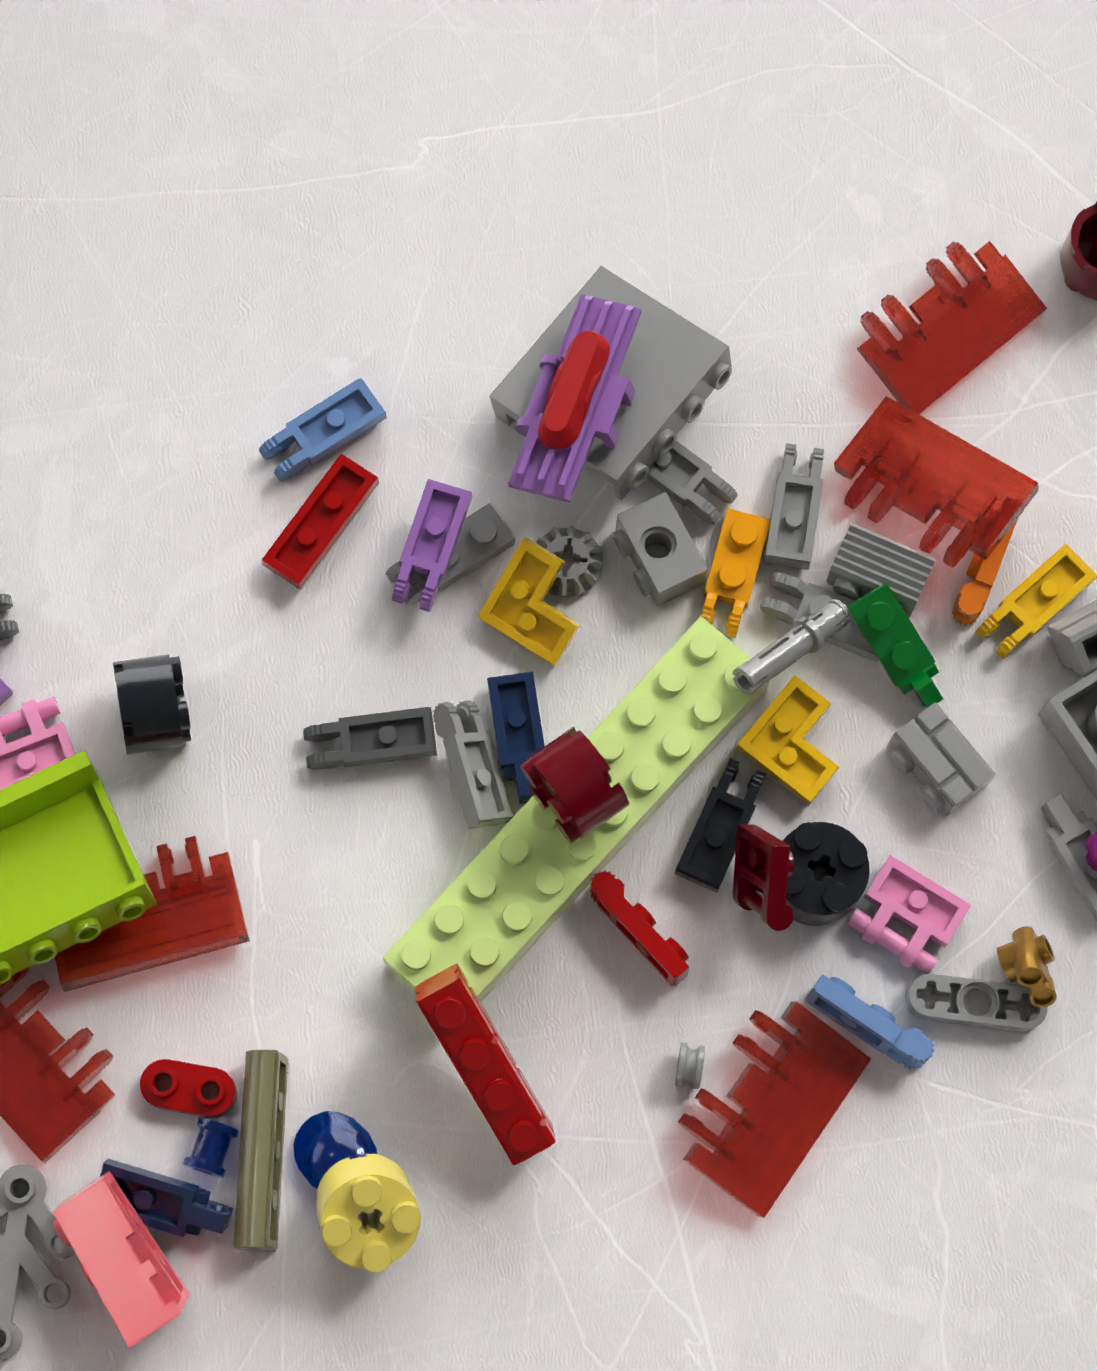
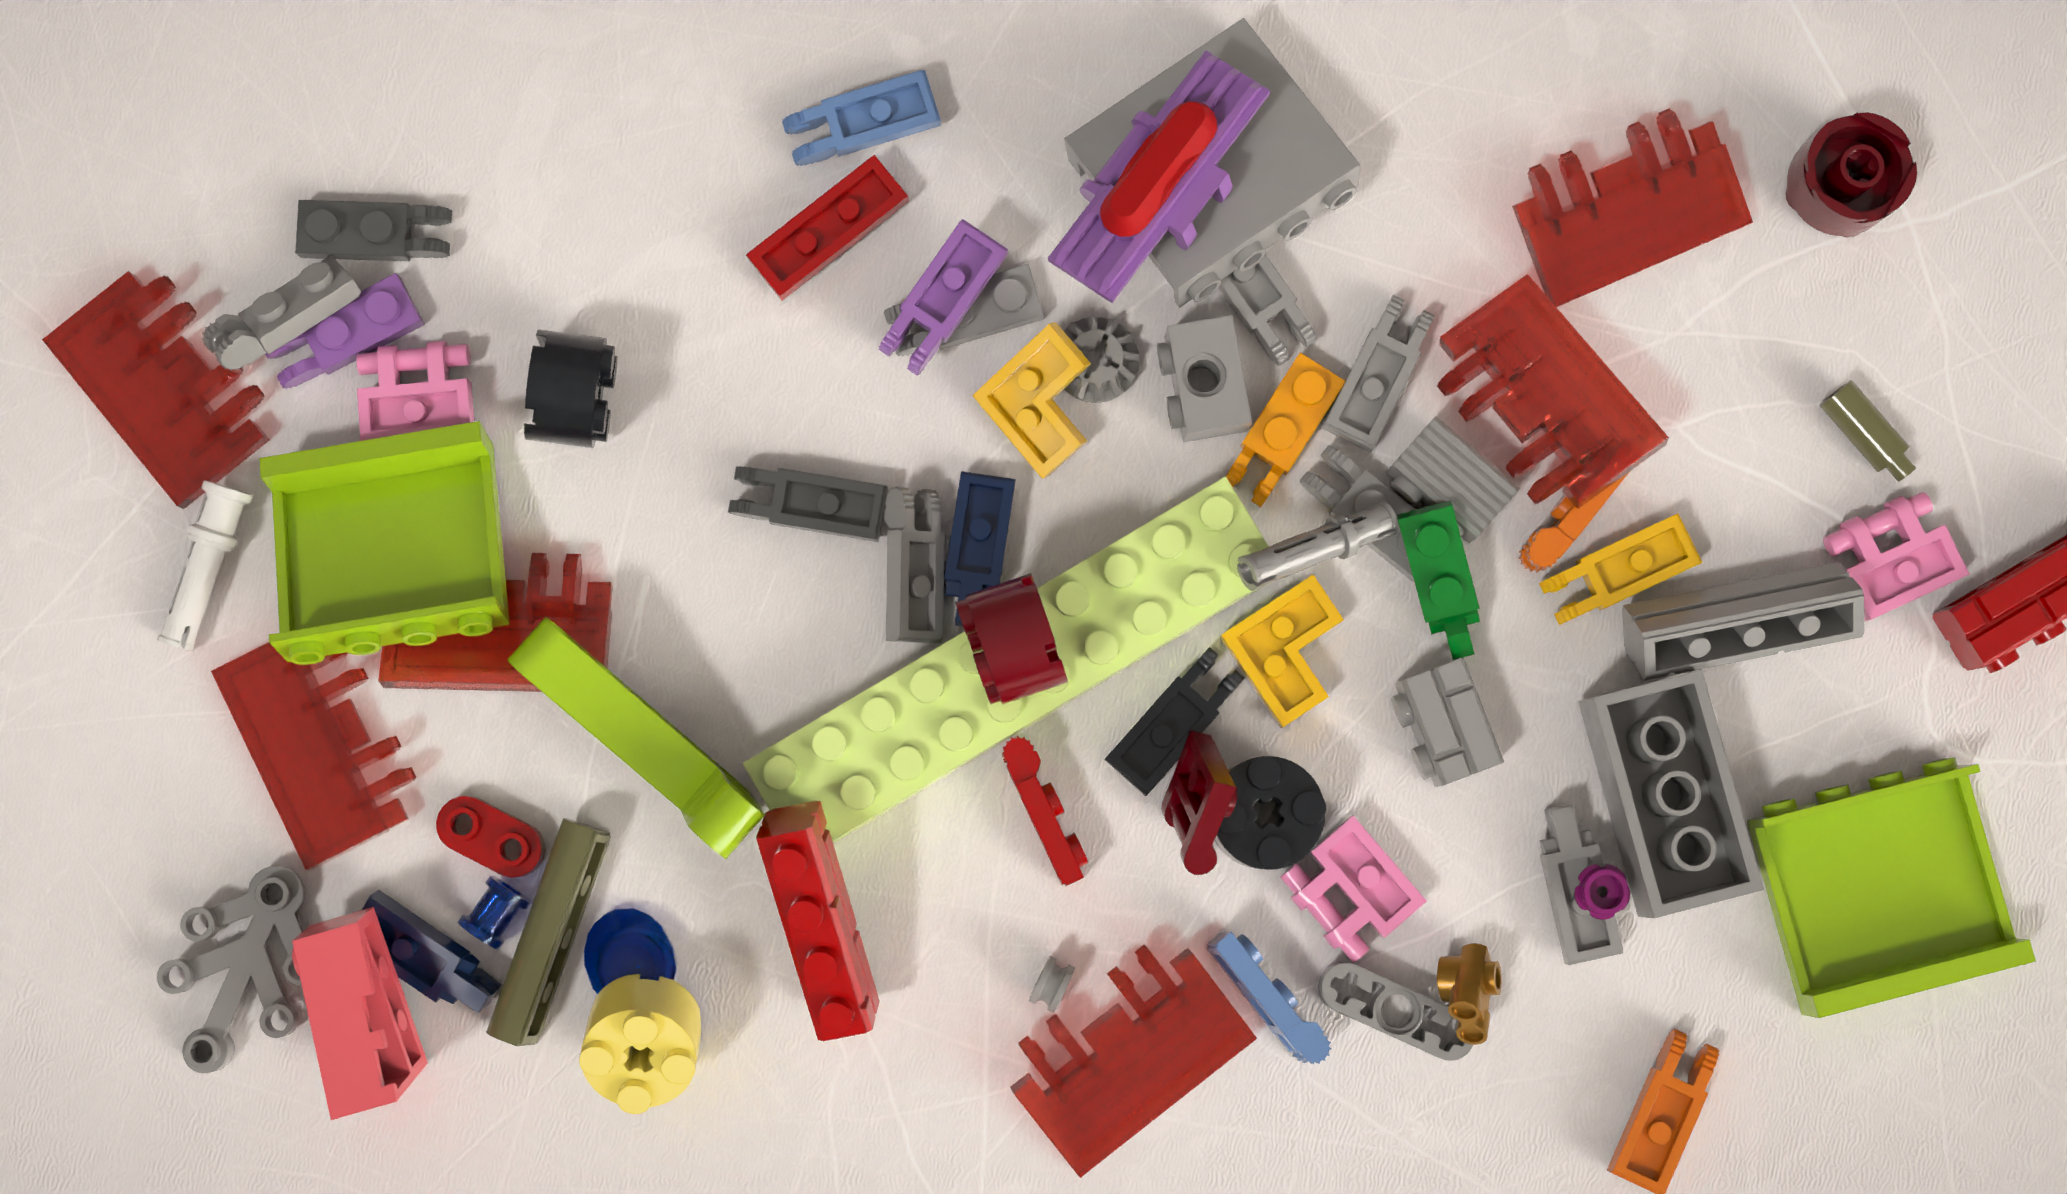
camera: 15 degrees right, 10 degrees up
(366, 996) = (706, 794): none -> lime beam

